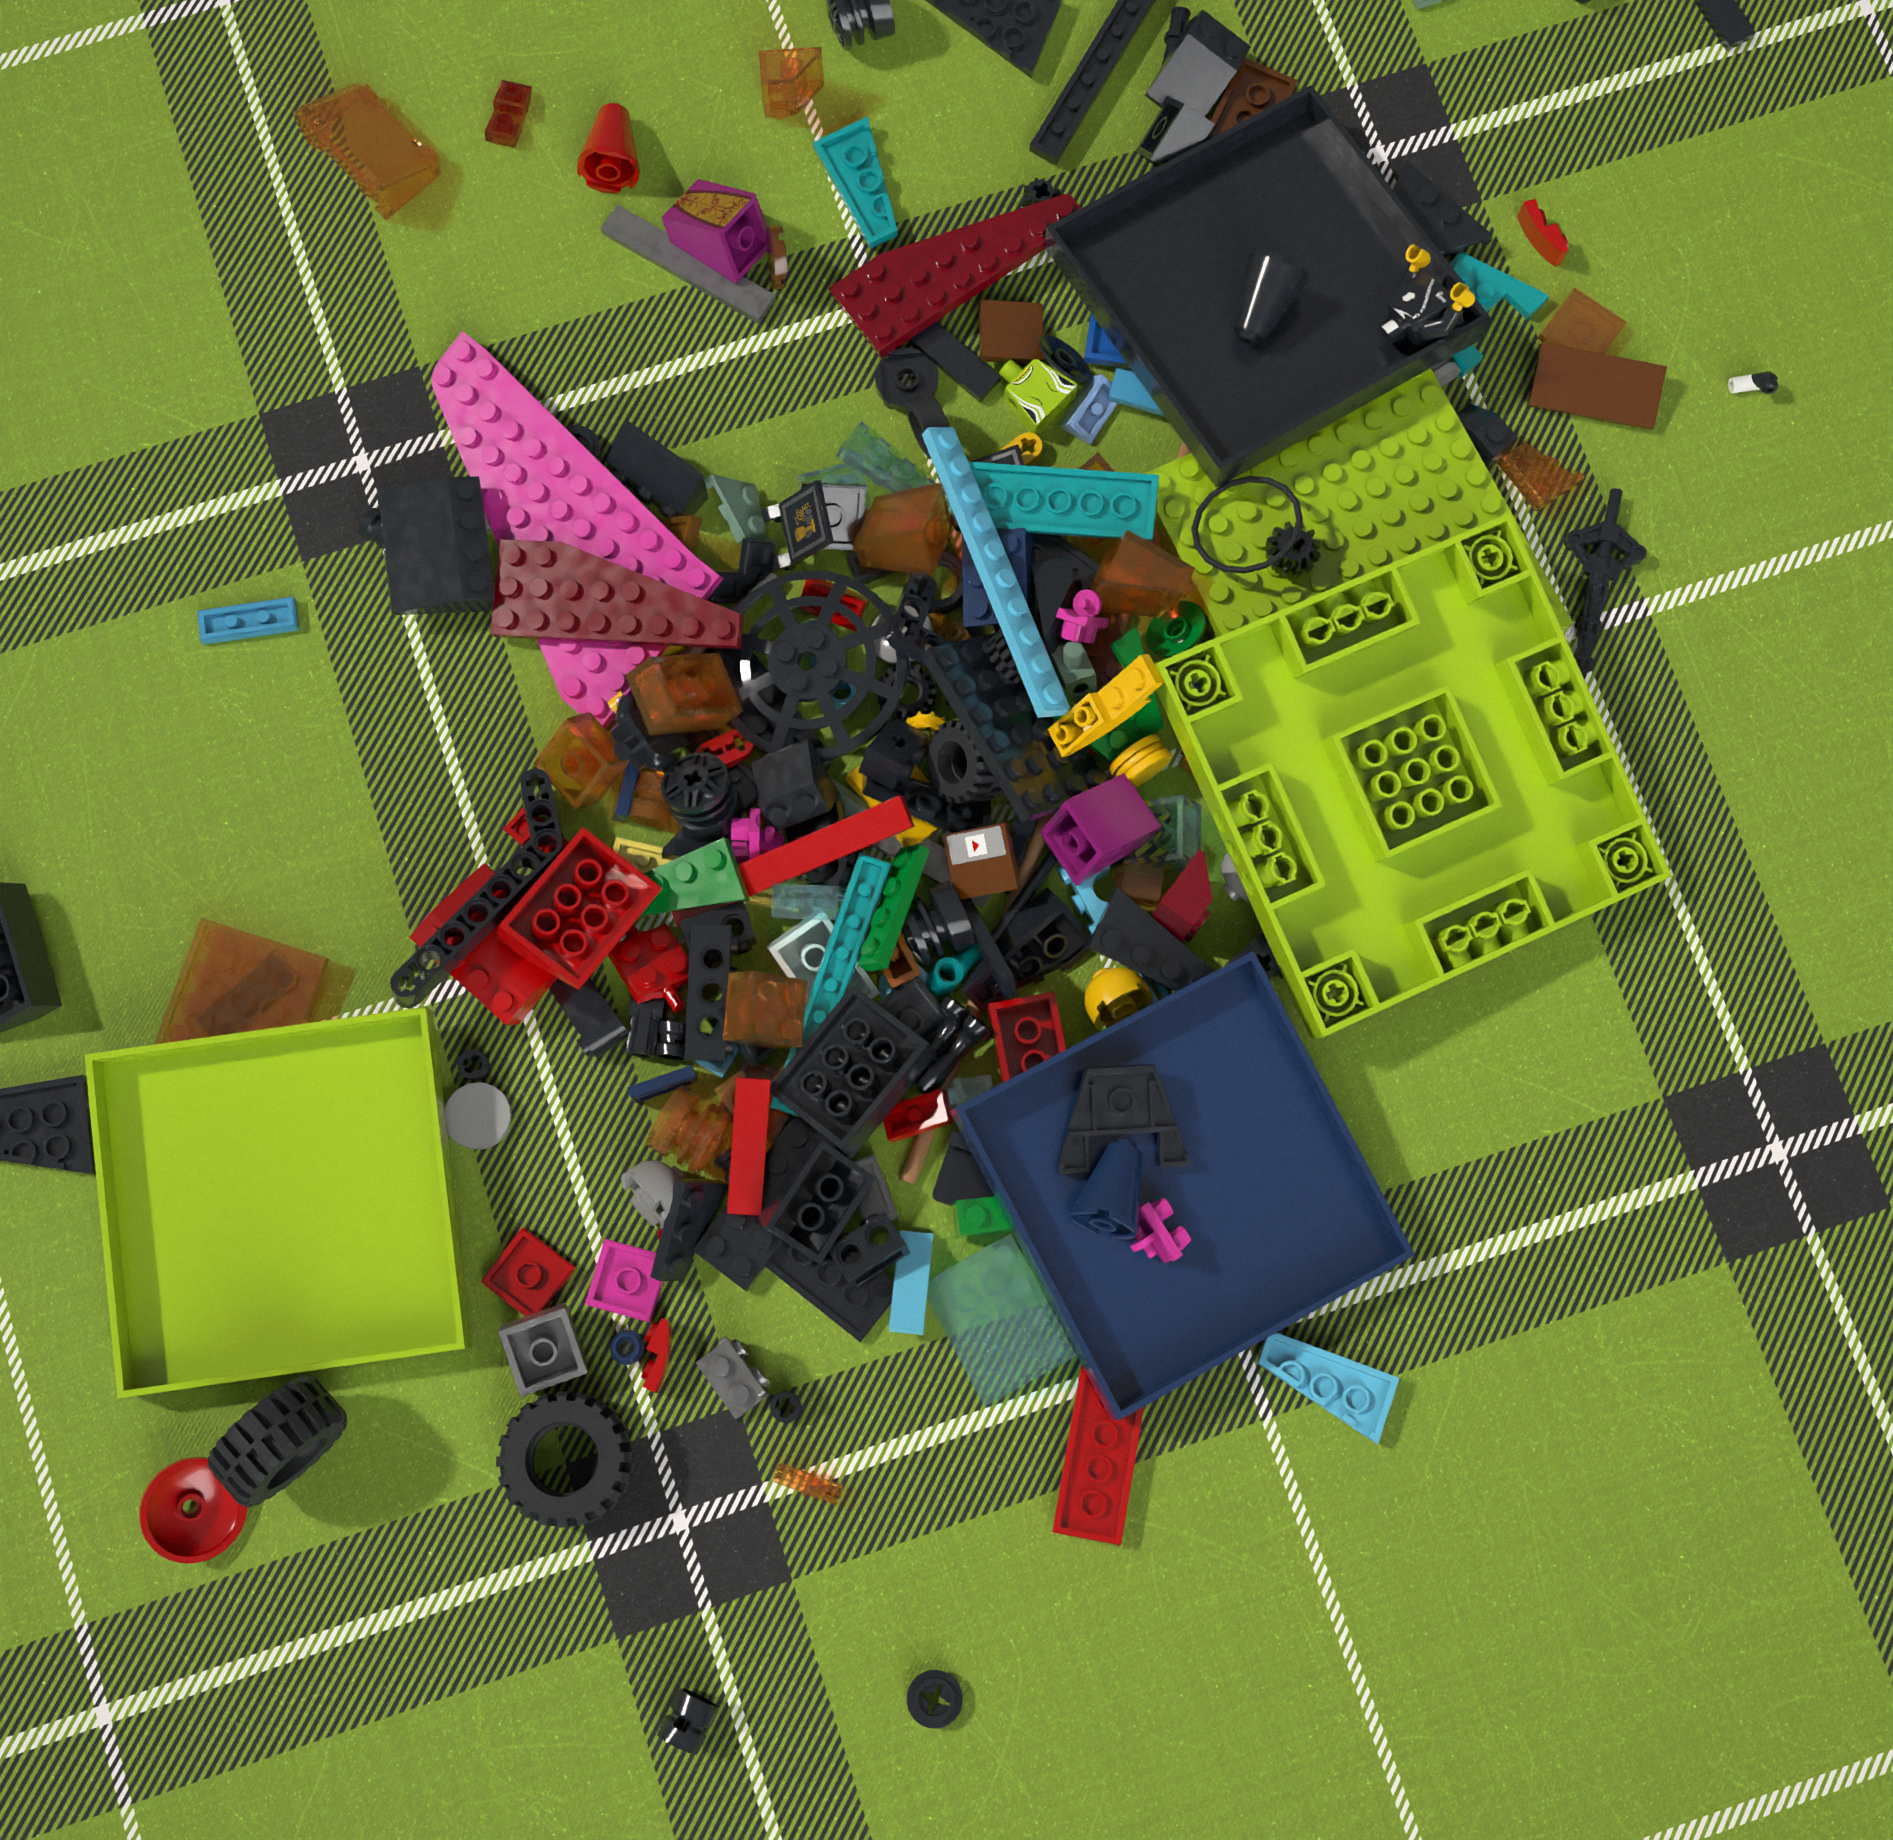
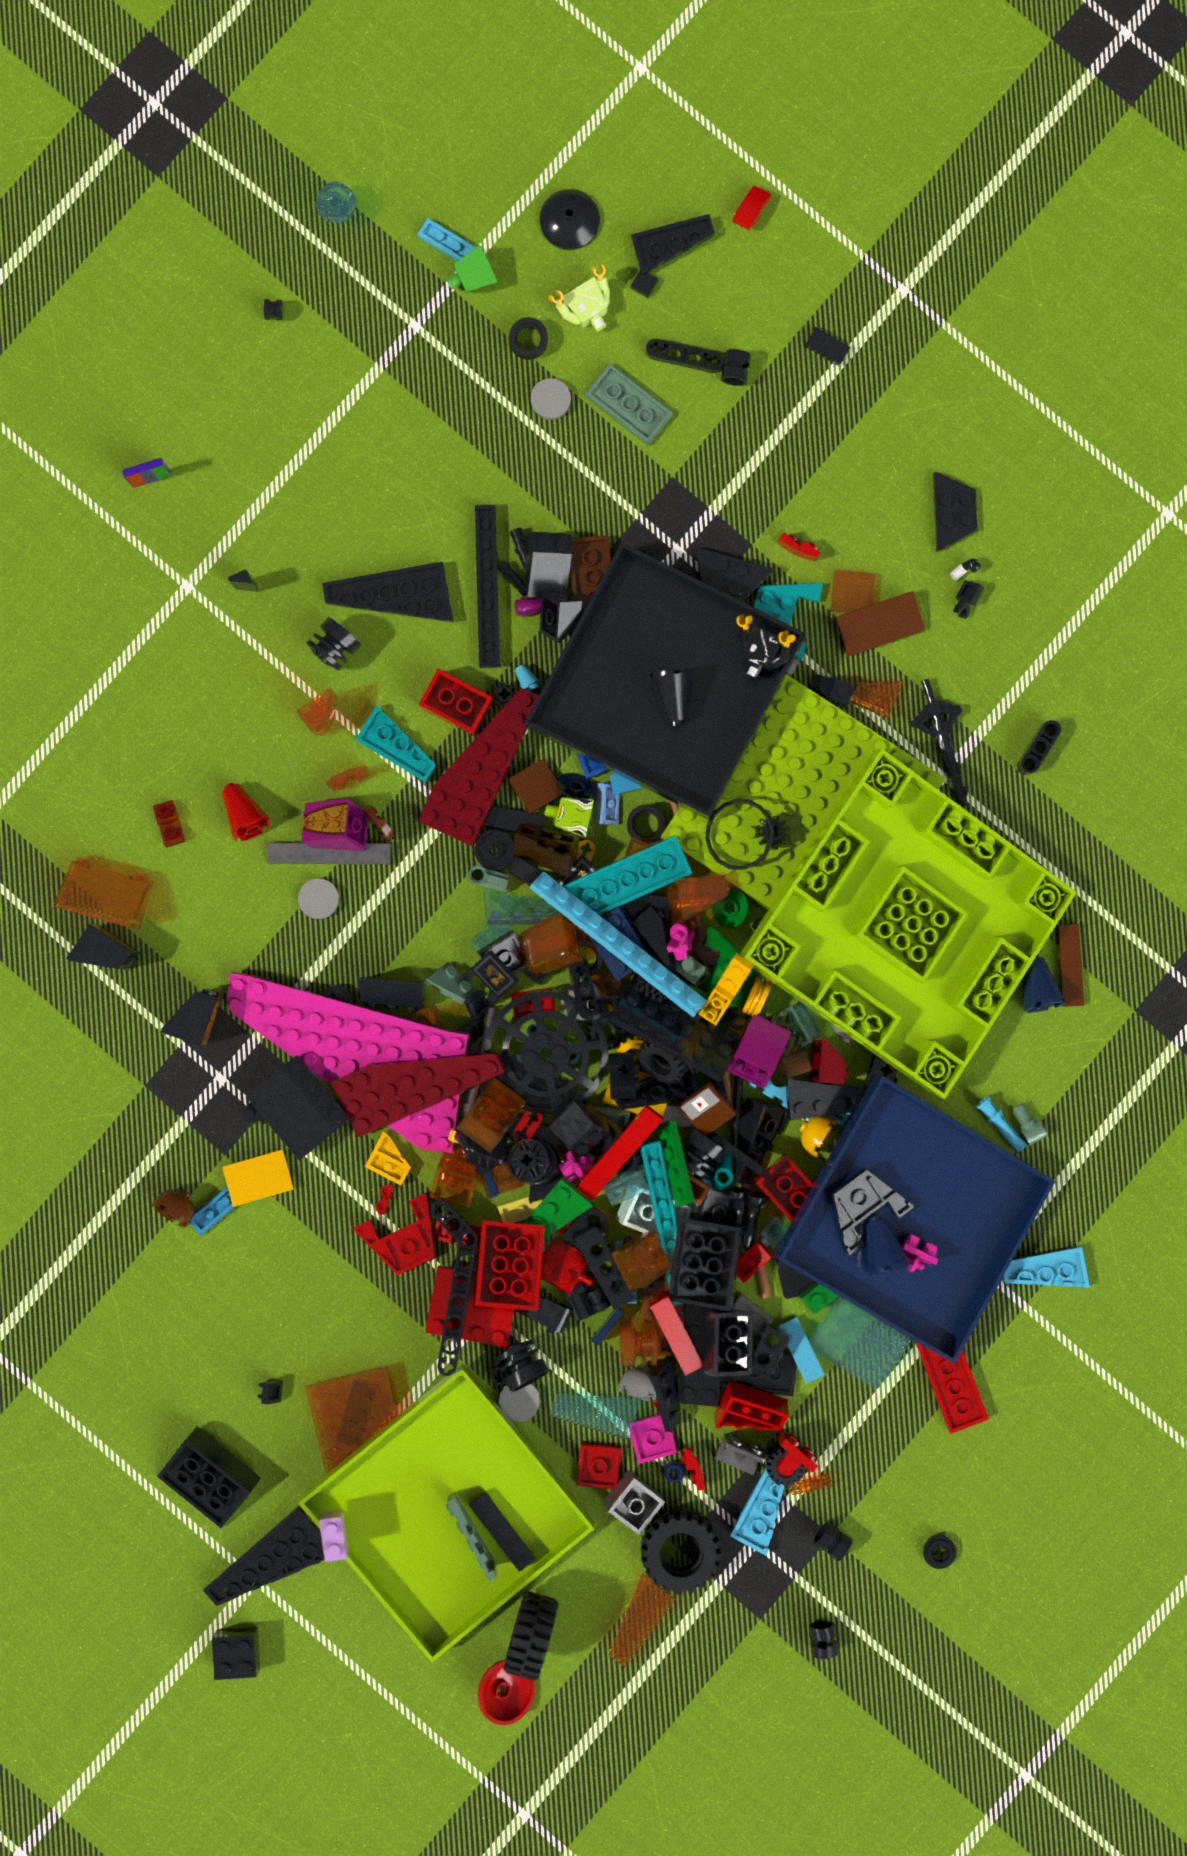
camera: 35 degrees left, 10 degrees up
(101, 1124) = (333, 1535): none -> lavender brick
(153, 899) = (271, 1392): none -> black tile
(192, 580) = (175, 1206): none -> reddish brown cylinder
(289, 1263) = (473, 1537): none -> sand green wing
(316, 207) = (103, 949): none -> black slope
(324, 610) = (258, 1178): none -> yellow tile
(335, 1276) = (502, 1531): none -> black tile
(380, 356) = (195, 1018): none -> black slope
(457, 1524) = (642, 1616): none -> clear orange wing
(460, 815) = (406, 1246): none -> red wing
(467, 744) = (386, 1193): none -> red piece
(510, 690) = (388, 1160): none -> yellow wing
(510, 1061) = (522, 1367): none -> black wheel
(578, 1203) = (599, 1413): none -> clear light blue wing
(637, 311) = (318, 898): none -> light grey tile
(708, 1482) = (758, 1516): none -> medium azure wing
(765, 180) = (341, 780): none -> clear orange slope
(790, 1318) = (751, 1408): none -> red wedge
(790, 1583) = (836, 1543): none -> black wheel
(793, 1425) = (789, 1460): none -> plate
(877, 410) = (491, 879): none -> sand green piece
(972, 167) = (456, 702): none -> red brick
(978, 408) = (547, 847): none -> dark brown wedge
(1083, 189) = (527, 679): none -> medium azure cone
(1132, 437) = (642, 809): none -> black tyre
(1138, 108) = (527, 606): none -> magenta cone
(1141, 66) = (513, 578): none -> black axle
(1380, 1122) = (995, 1117): none -> medium azure pin
(1420, 1170) = (1031, 1130): none -> sand green pin
(1544, 981) = (1040, 988): none -> dark blue cone
(1605, 980) = (1070, 964): none -> reddish brown tile
(1735, 654) = (1045, 740): none -> black beam
(1738, 417) = (967, 595): none -> black plate
(1779, 304) = (953, 510): none -> black wing

